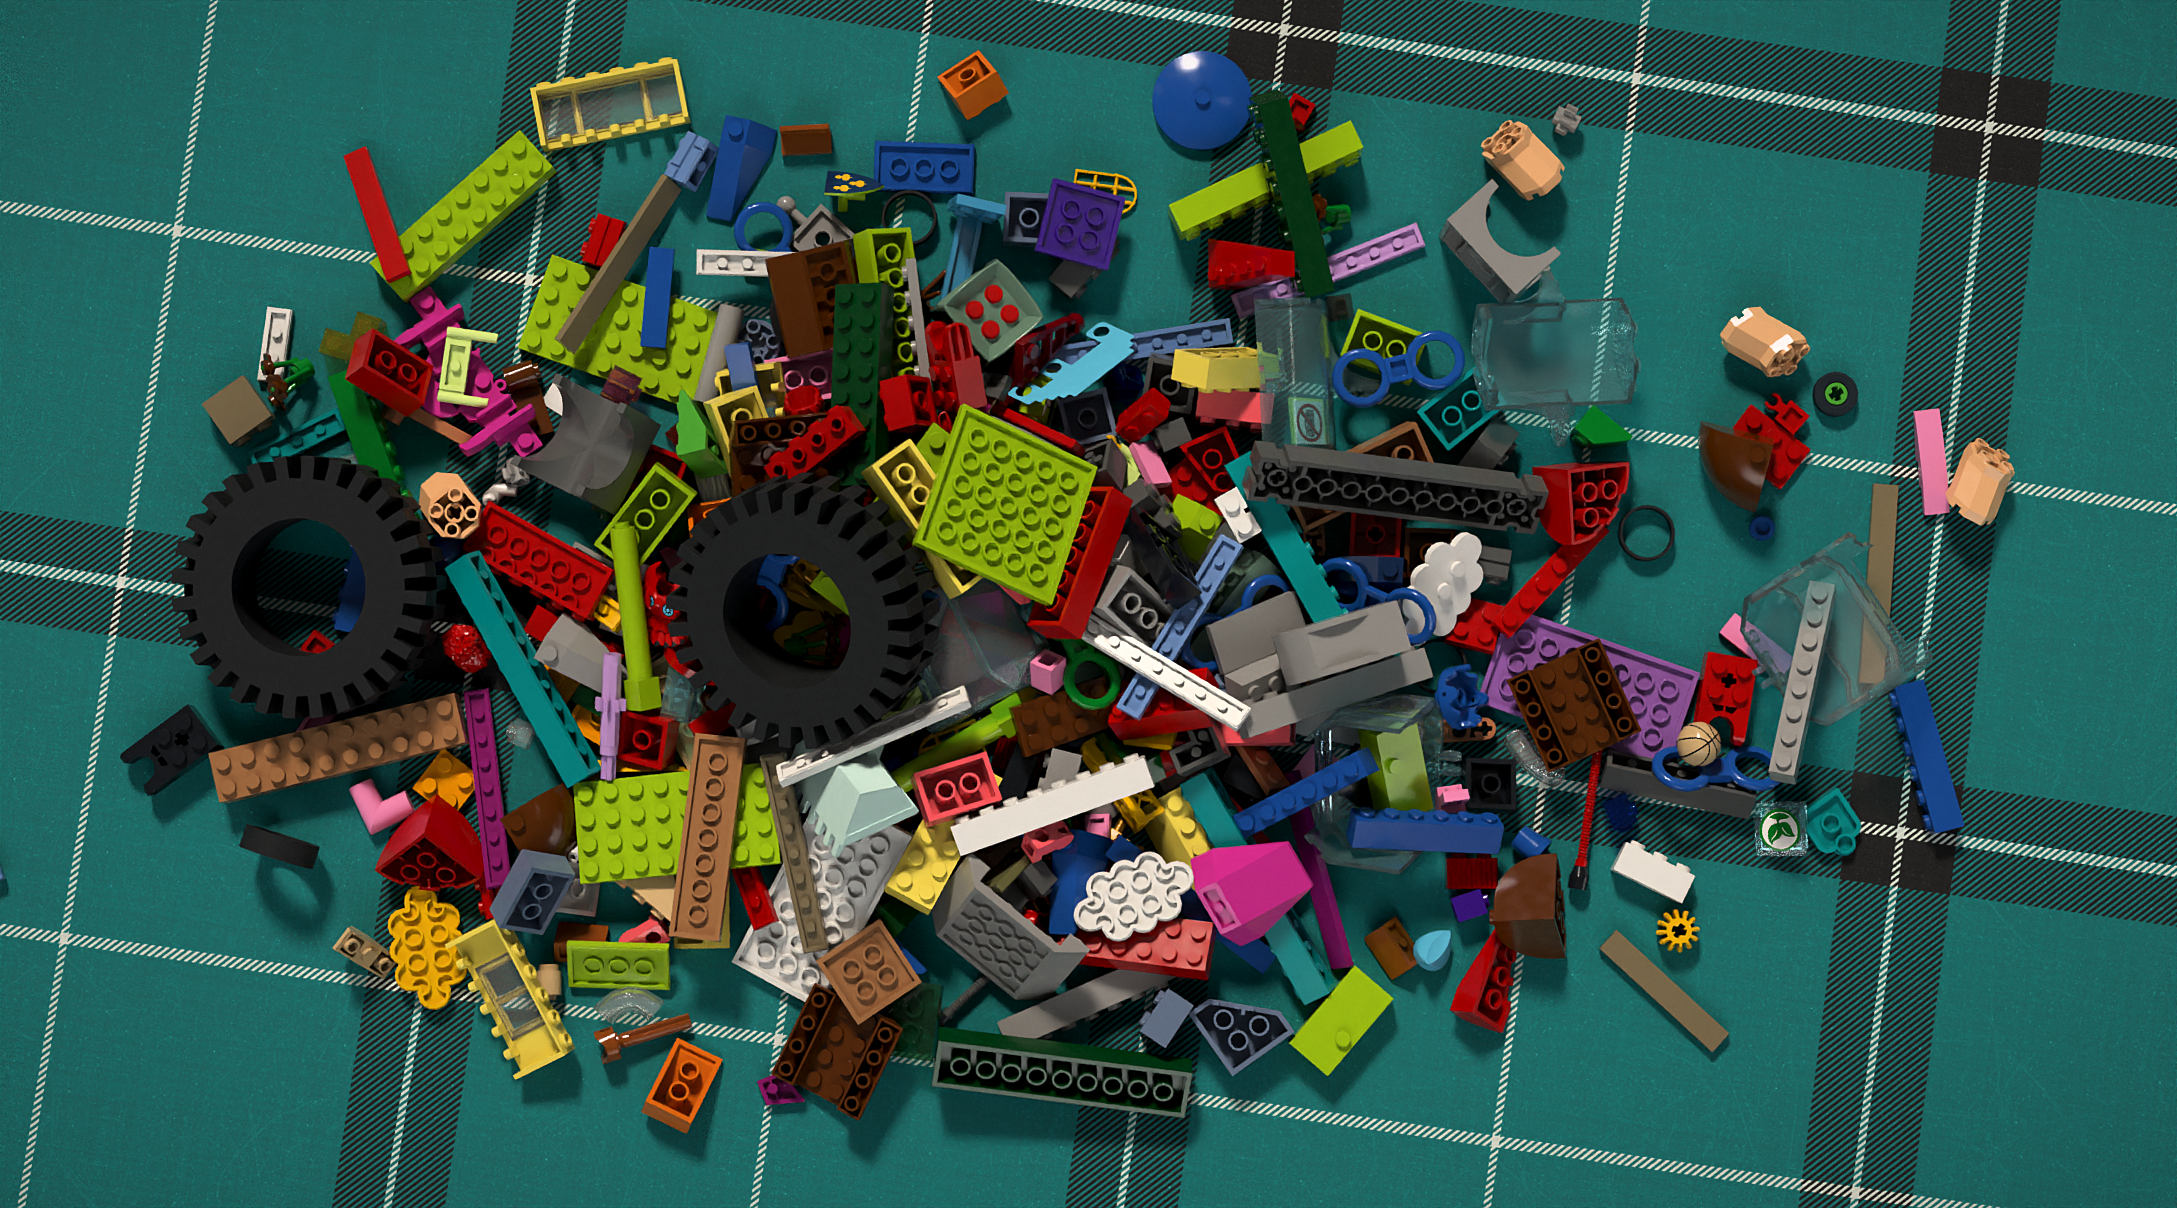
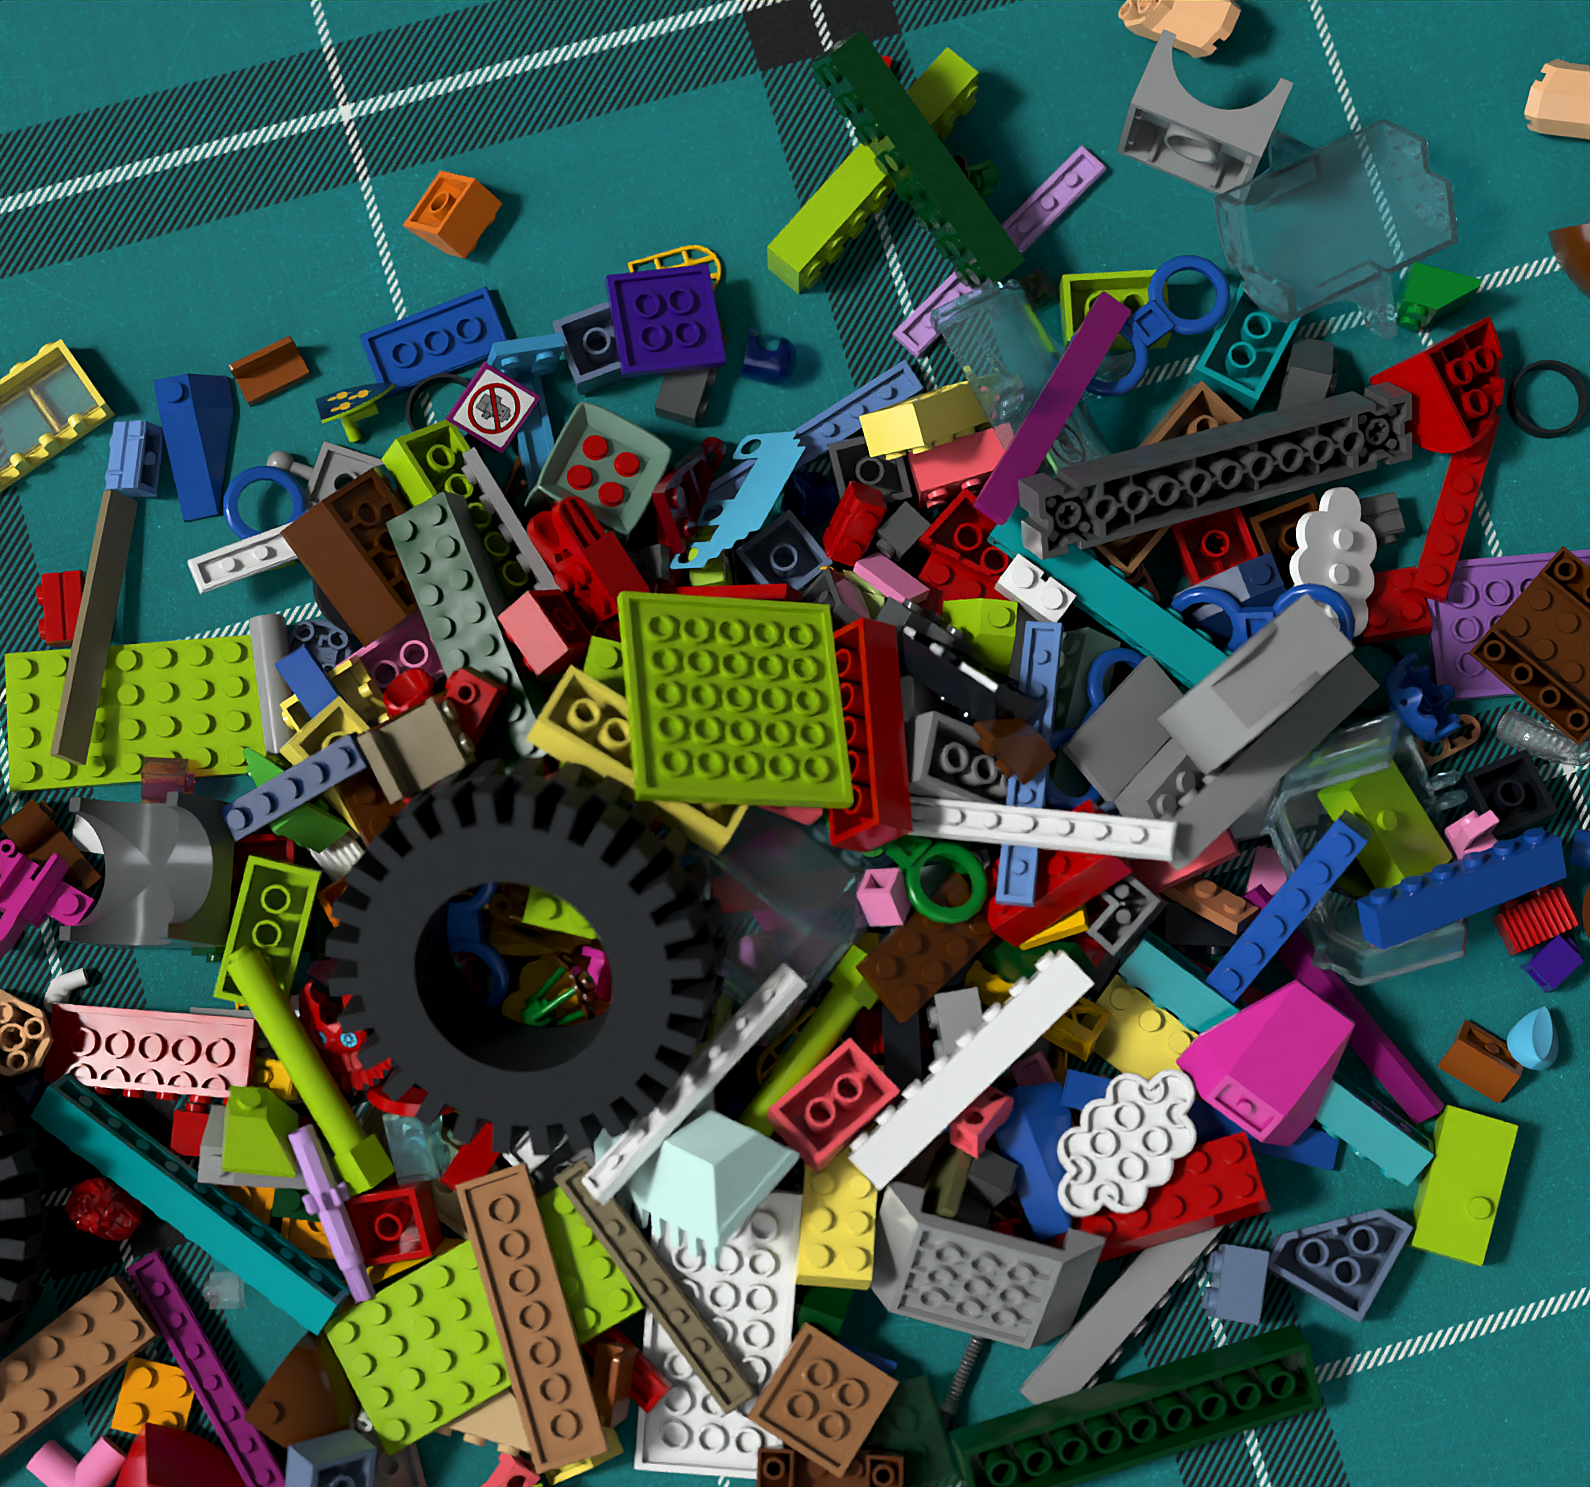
camera: 25 degrees left, 5 degrees down
(515, 475) = (75, 955): light grey gear -> none
(584, 644) = (258, 1133): none -> lime slope
(657, 297) = (164, 648): blue tile -> none
(703, 434) = (295, 786): none -> plate
(742, 899) = (613, 1380): none -> dark orange panel
(791, 447) = (418, 749): none -> dark tan panel
(941, 232) = (493, 407): none -> piece
(1136, 280) = (768, 365): none -> clear blue helmet
(1173, 614) = (1016, 746): none -> reddish brown slope
(1201, 101) = (748, 113): blue dish -> none
(1245, 265) = (897, 280): red wedge -> none
(1304, 398) = (1052, 407): none -> magenta tile

